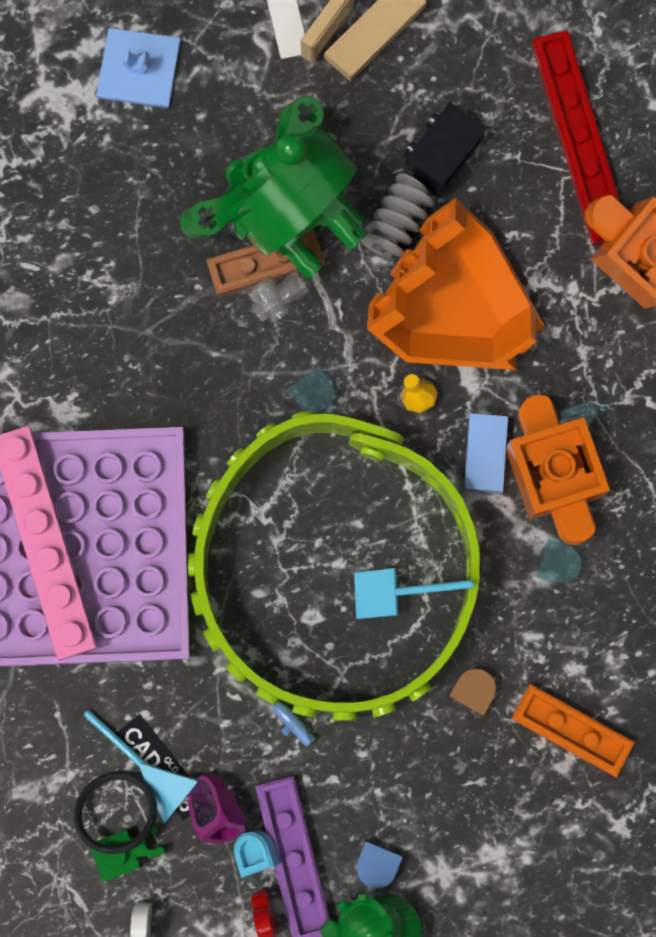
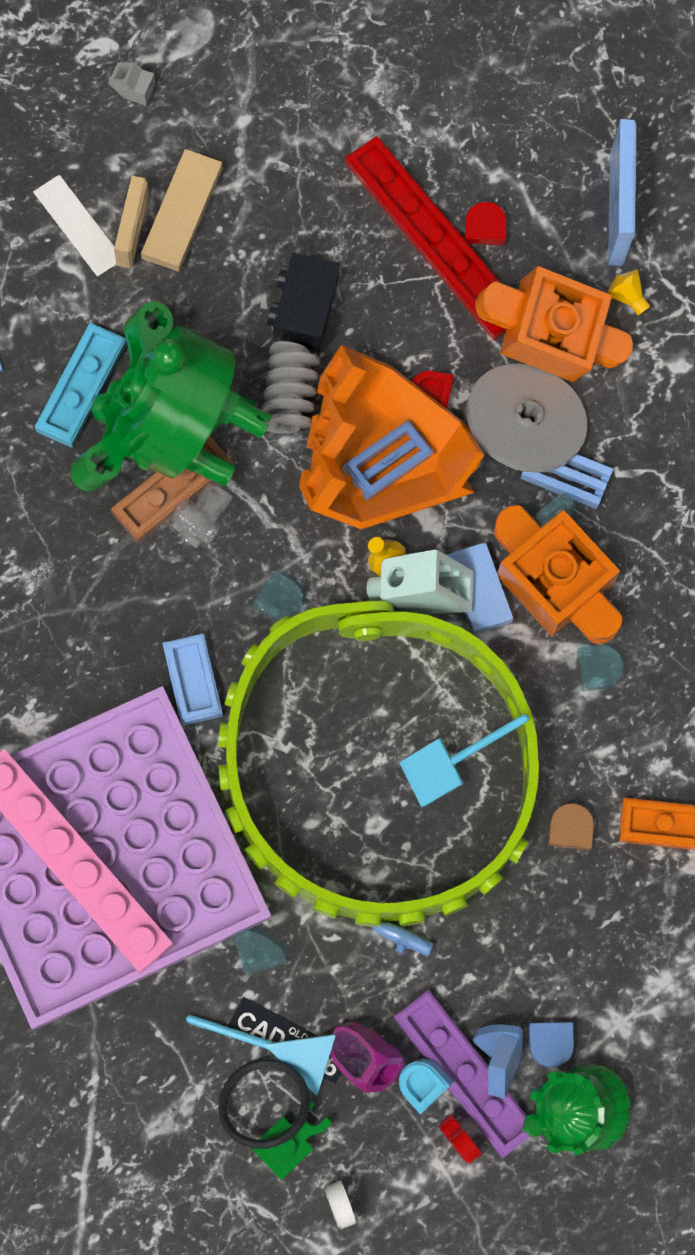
camera: 30 degrees left, 5 degrees down
(166, 682) = (257, 952): none -> clear light blue tile
(212, 431) = (192, 679): none -> light blue tile
(227, 143) = (80, 384): none -> medium azure tile
(336, 857) = (505, 1047): none -> medium blue tile
(424, 319) = (360, 480): none -> medium blue tile
(428, 424) = (423, 584): none -> light aqua torso
(524, 264) = (435, 385): none -> red tile
(572, 341) = (517, 442): none -> light grey piece
(614, 375) = (581, 463): none -> light blue tile
(627, 143) = (485, 224): none -> red tile

